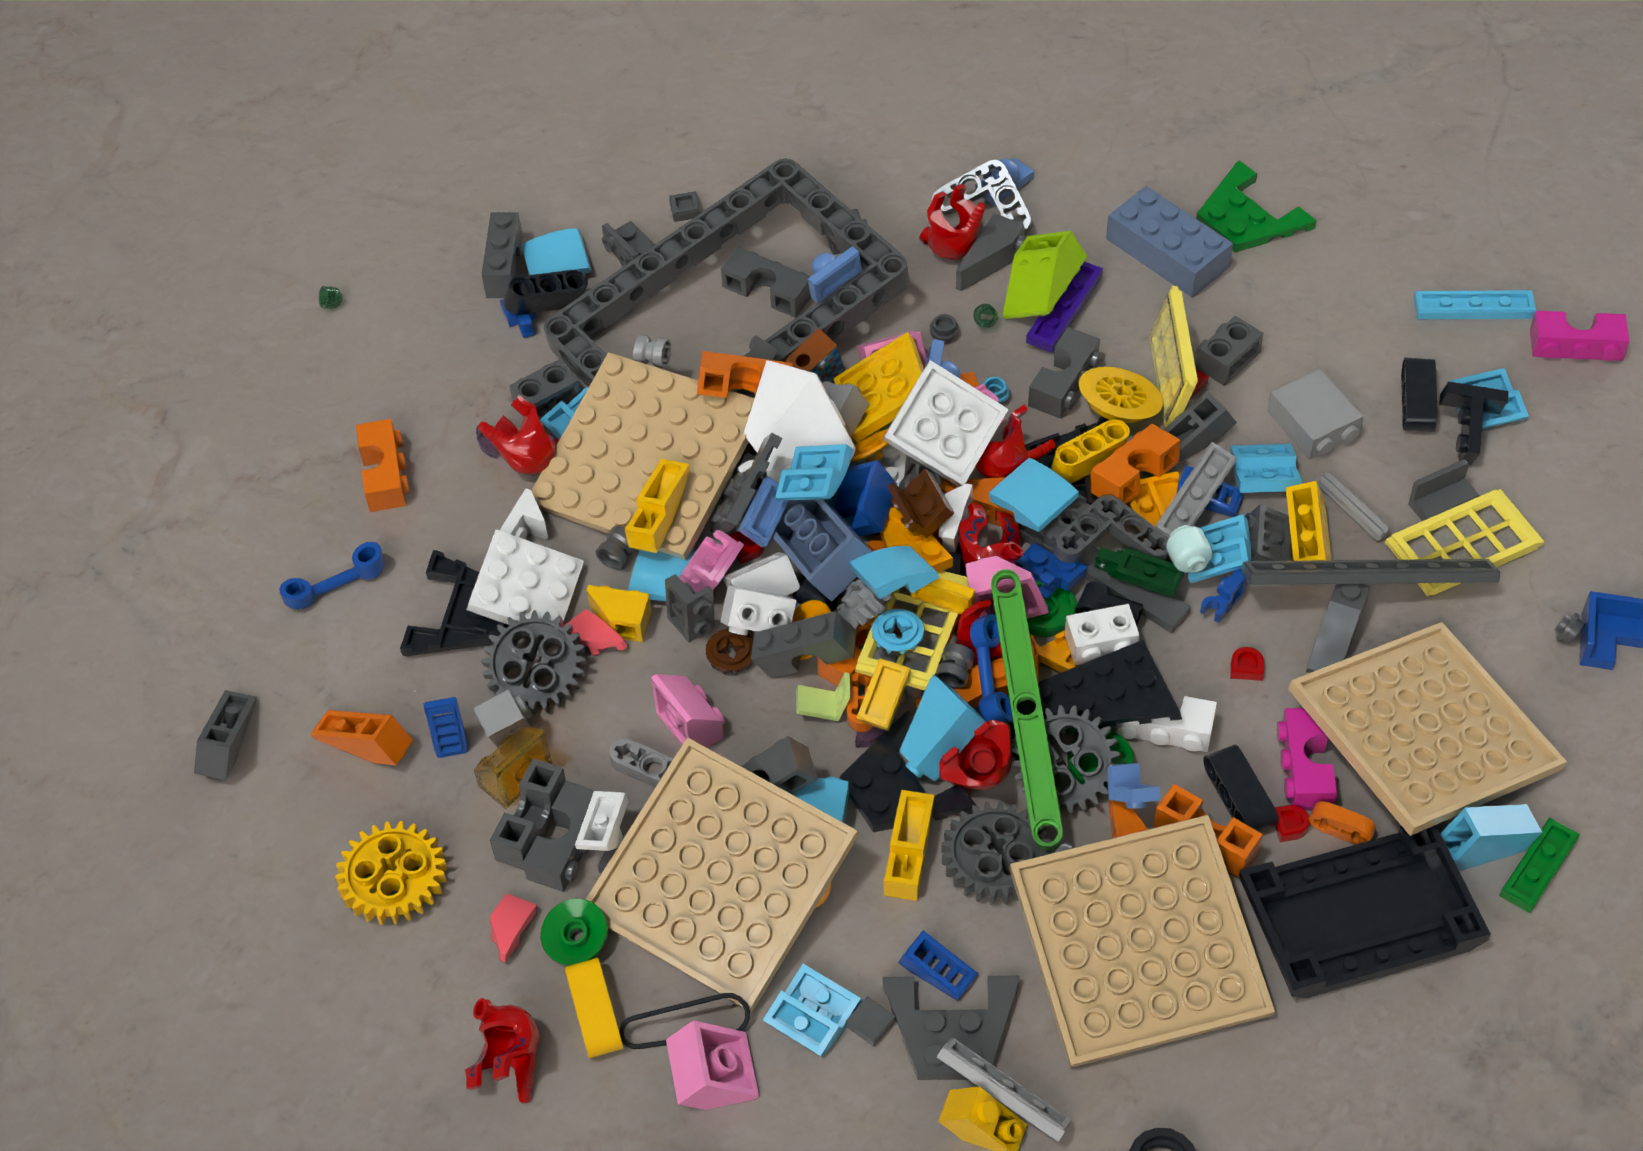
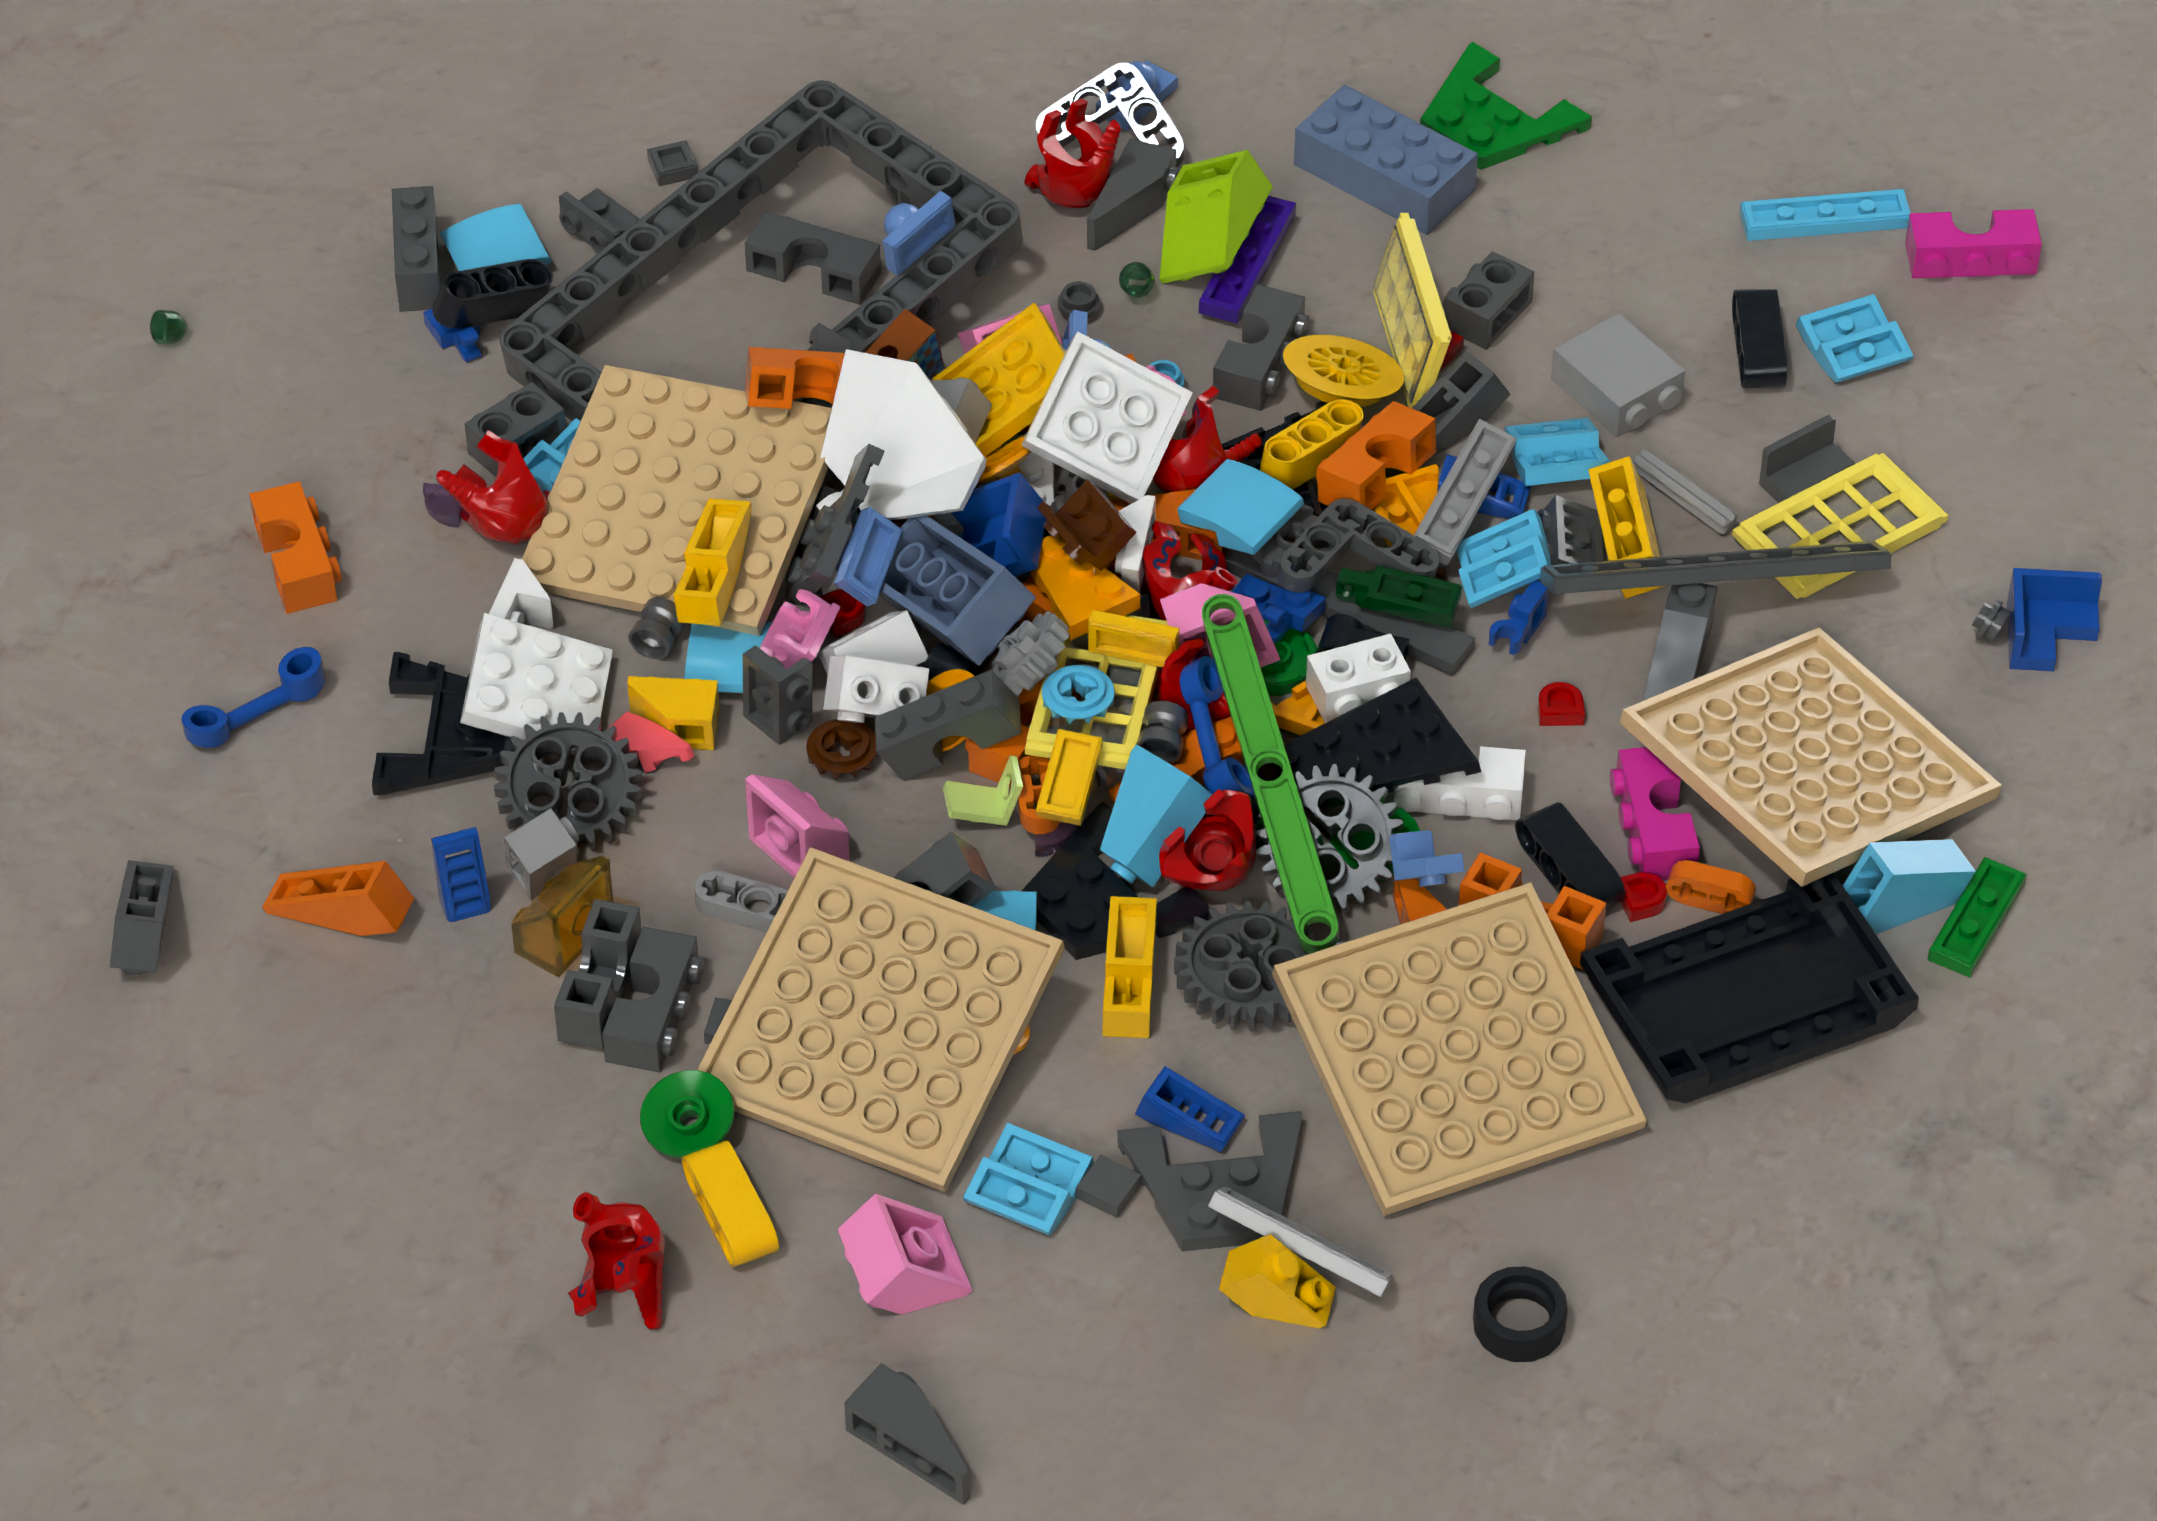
camera: 10 degrees left, 5 degrees down
(391, 872) = (416, 1066): yellow gear -> none
(508, 922) = (592, 1113): coral slope -> none
(603, 821) = (707, 968): white slope -> none
(652, 351) = (669, 358): light grey wheel -> none
(677, 1007) = (855, 1185): black piece -> none
(814, 472) = (933, 495): medium azure slope -> none
(891, 569) = (1062, 609): medium azure slope -> none
(1189, 549) = (1465, 559): light aqua head -> none
(1472, 403) = (1834, 340): black bracket -> none

